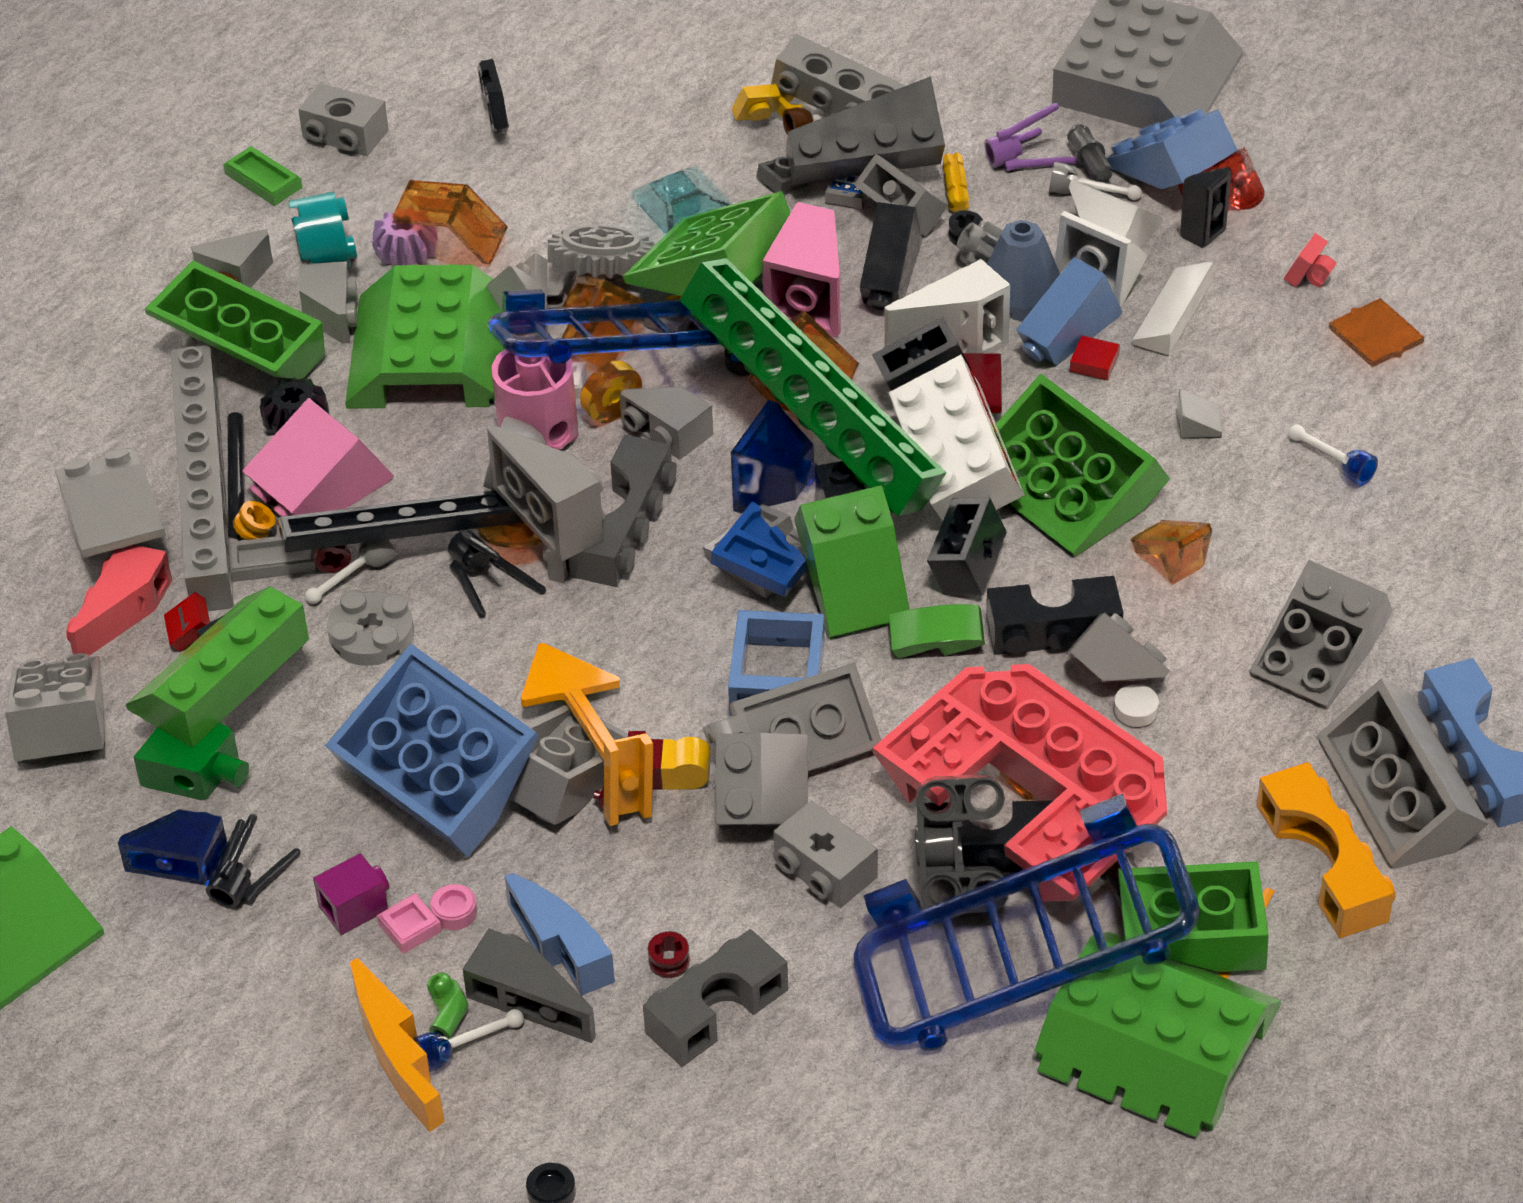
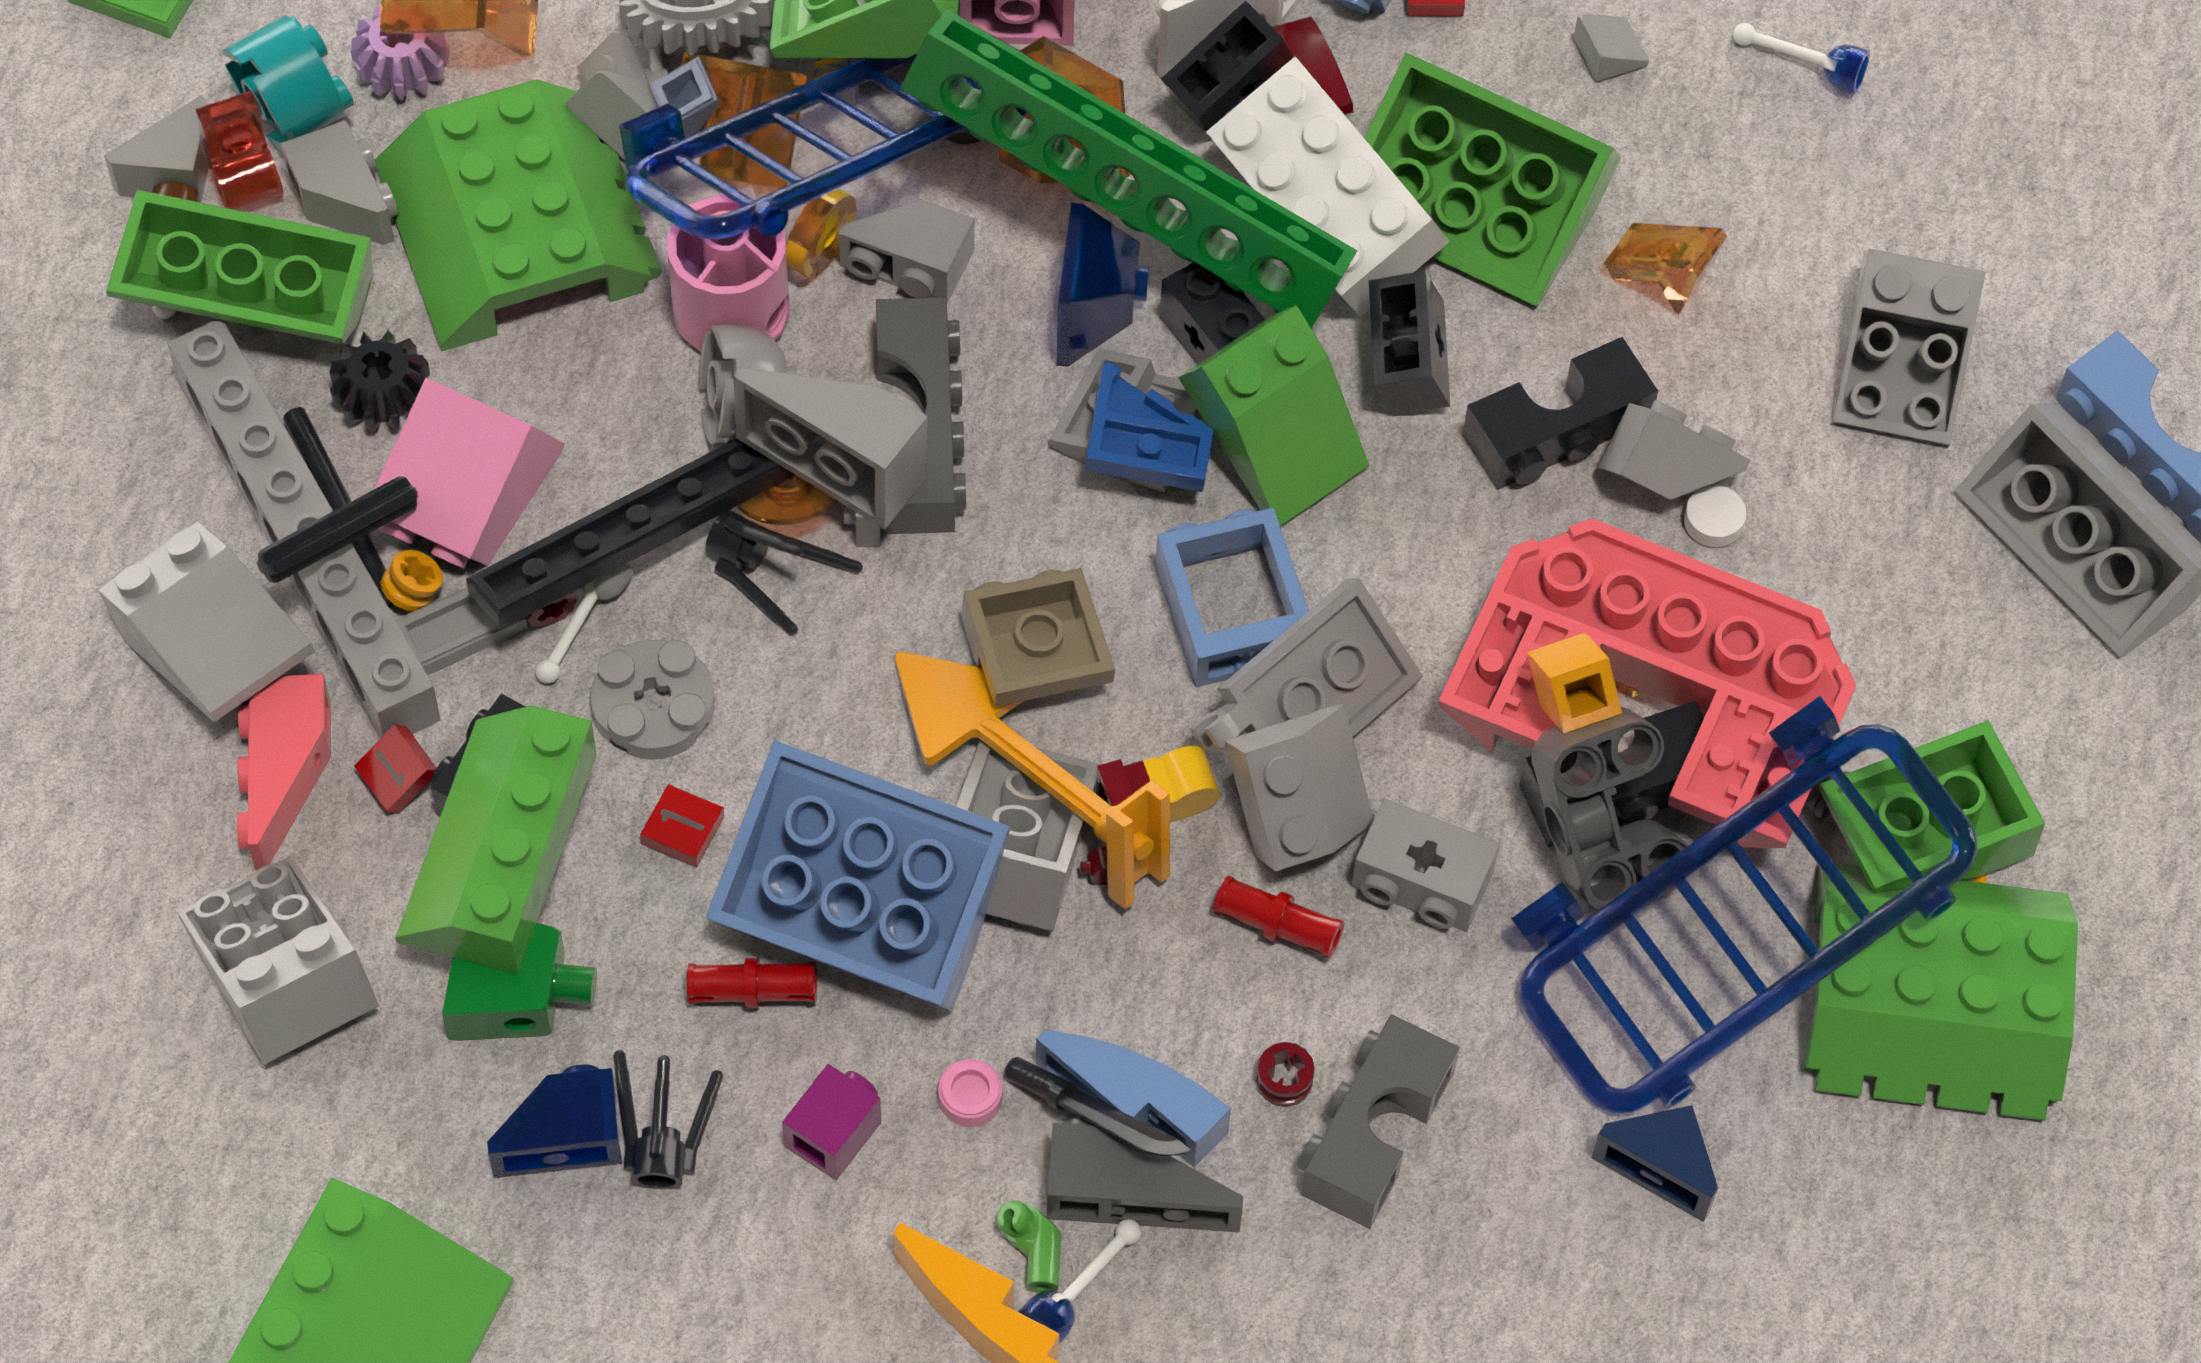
camera: 25 degrees left, 15 degrees up
(211, 468) = (337, 529): none -> black axle
(273, 261) = (238, 152): none -> clear red plate
(344, 699) = (682, 825): none -> red tile
(344, 801) = (752, 982): none -> red pin
(409, 923) = (922, 1136): bright pink tile -> none
(511, 920) = (1065, 1095): none -> black piece
(564, 295) = (689, 92): none -> sand blue slope
(630, 649) = (1036, 636): none -> dark tan plate
(711, 859) = (1278, 916): none -> red pin
(900, 1073) = (1663, 1156): none -> dark blue slope
(941, 626) = (1416, 479): bright green slope -> none
(960, 749) = (1574, 682): none -> light orange brick
(1302, 809) = (1989, 610): light orange arch -> none

